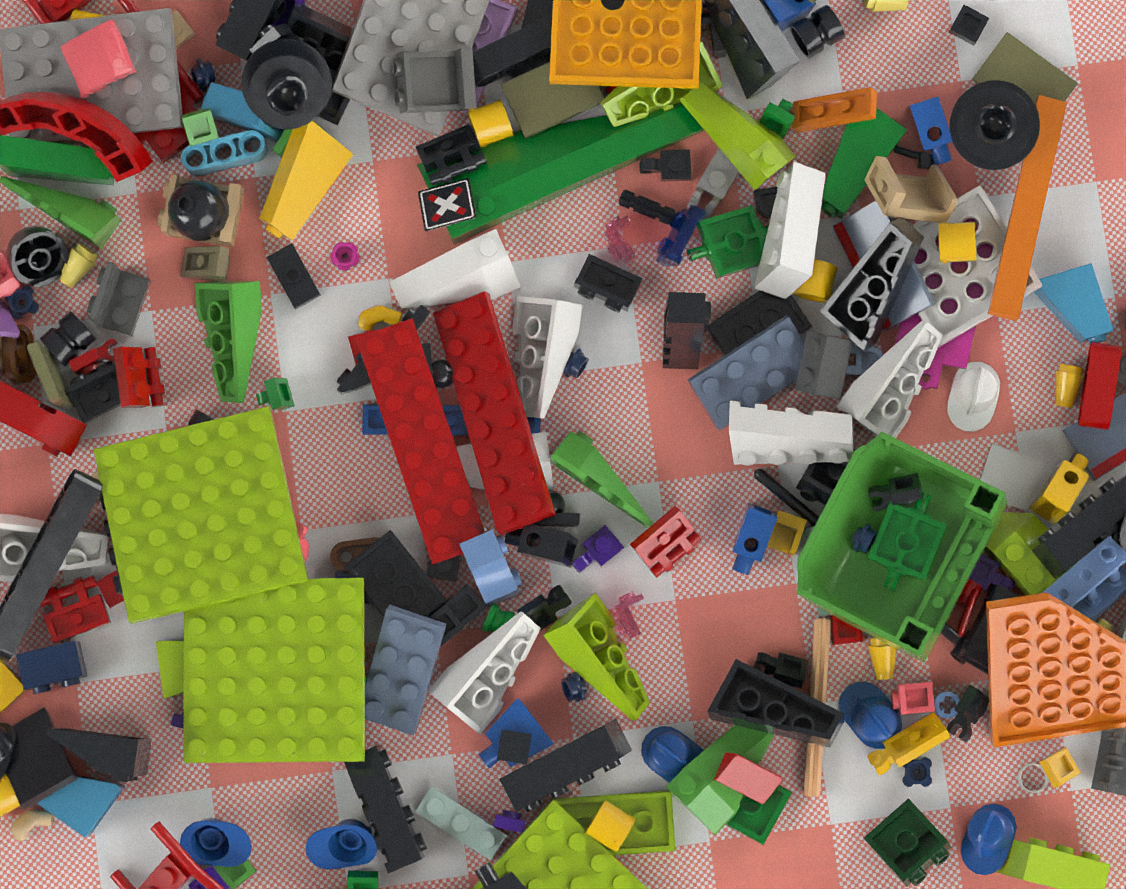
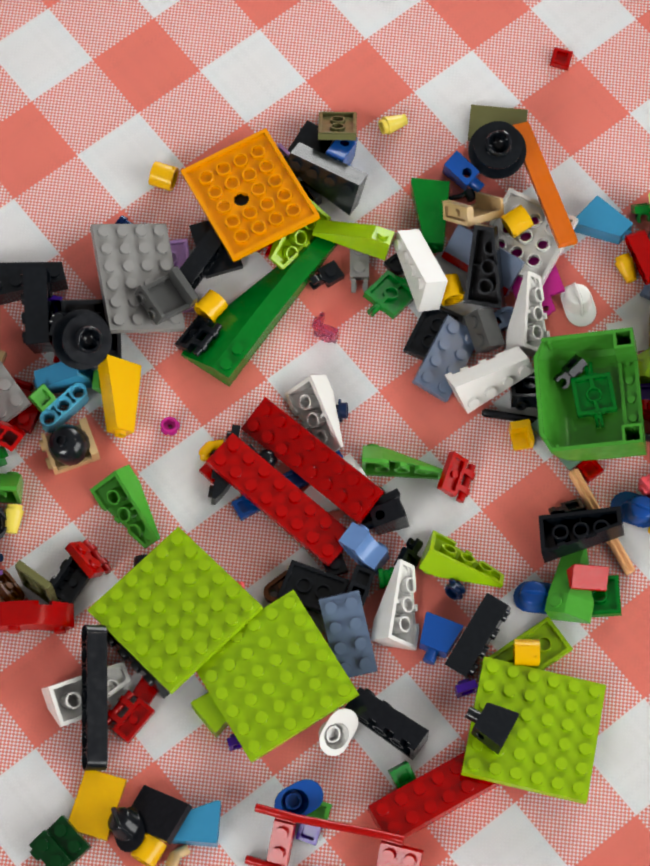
camera: 30 degrees left, 15 degrees down
(52, 665) = (135, 756): dark blue brick -> none
(68, 338) = (34, 557): black wheel -> none
(91, 359) = (53, 566): red plate -> none
(109, 753) = (198, 780): black slope -> none
(118, 299) = (50, 523): dark grey bracket -> none
(202, 74) = (25, 371): dark blue plate -> none
(206, 263) = (90, 473): dark tan slope -> none
(277, 394) = (176, 521): green tile -> none
(293, 276) = (146, 454): black plate -> none
(314, 786) = (338, 731): none -> white piece
(342, 845) = (375, 758): blue piece -> none
(446, 204) = (213, 360): black sticker -> none
(459, 274) = (243, 398): white wedge -> none
(461, 823) = (436, 707): light aqua plate -> none
(514, 747) = (442, 639): black tile -> none
(543, 105) = (235, 278): olive tile -> none
(600, 548) = (419, 504): dark purple plate -> none
(607, 283) = (332, 356): black bracket -> none
(626, 622) = (460, 534): clear pink bracket -> none
(646, 207) = (328, 304): black axle -> none
(682, 226) = (356, 300): clear blue plate -> none
(684, 324) = (392, 349): black wedge -> none
(756, 524) = (504, 437): blue torso -> none
(778, 117) = (373, 215): green tile -> none
(816, 32) = (366, 157): black wheel -> none
(834, 109) = (402, 192): orange plate -> none
(863, 539) = (568, 407): dark blue plate -> none
(883, 658) = (620, 471): yellow cone -> none
(969, 25) = (447, 112): black plate -> none

